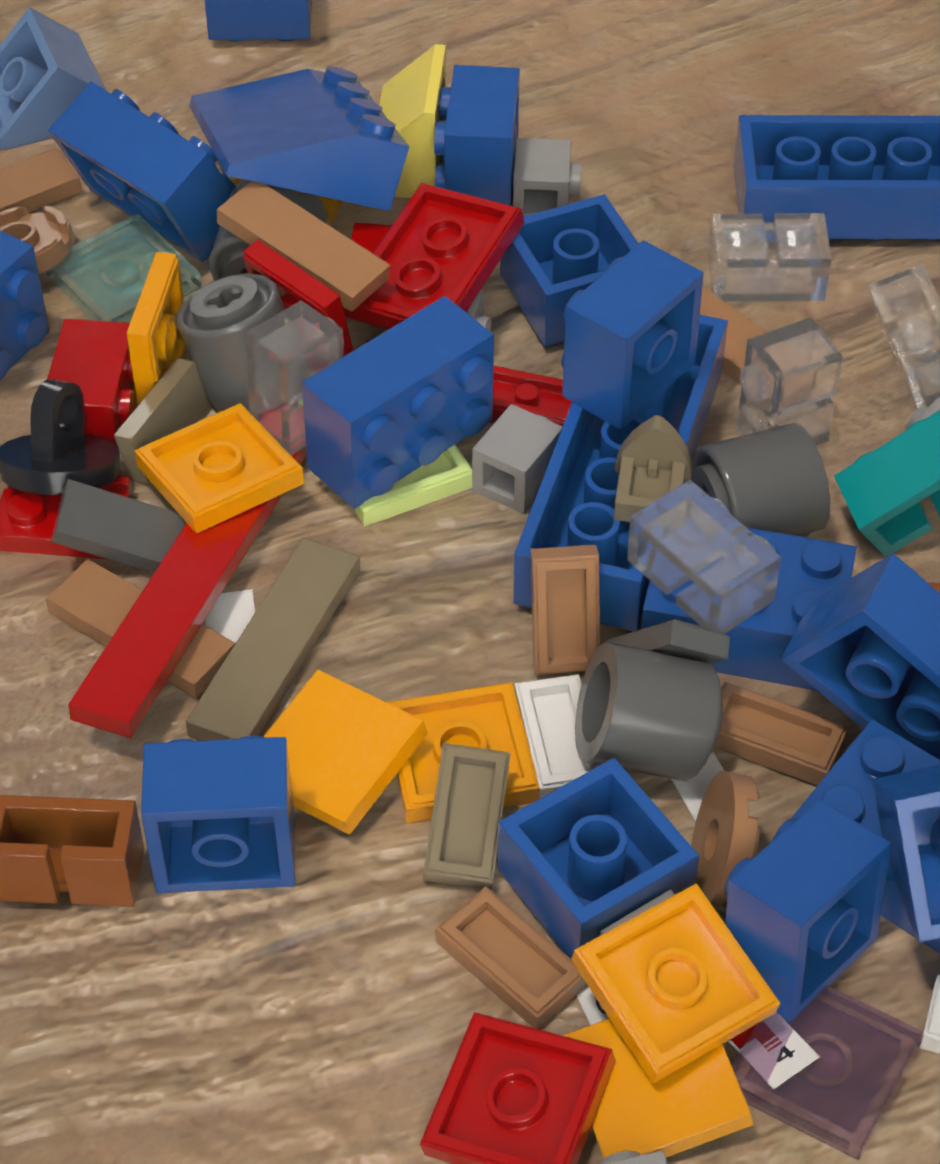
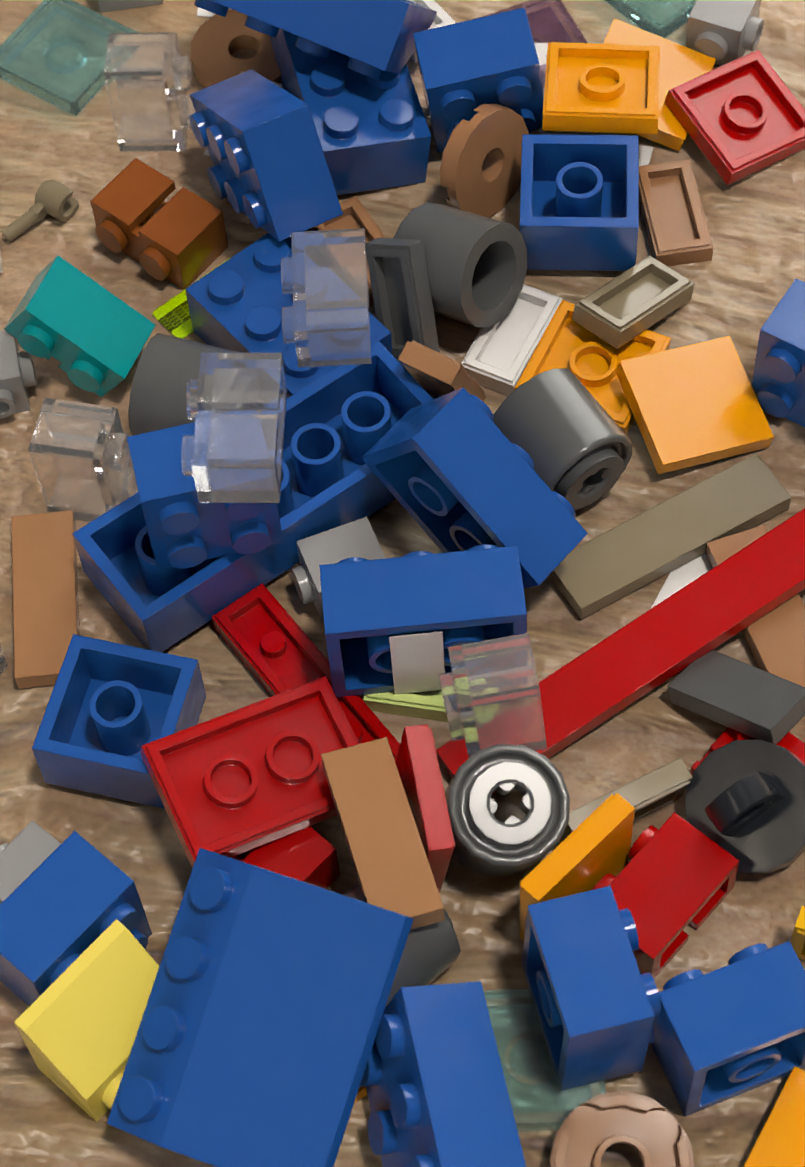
camera: 140 degrees left, 10 degrees up
(89, 253) = (589, 987): none -> blue brick
(219, 467) = (614, 699): light orange tile -> none
(416, 621) = (566, 434): none -> dark grey piece
(437, 487) = (474, 485): none -> blue brick
(609, 287) = (237, 428): none -> clear piece
(649, 466) = (311, 400): dark tan tile -> none

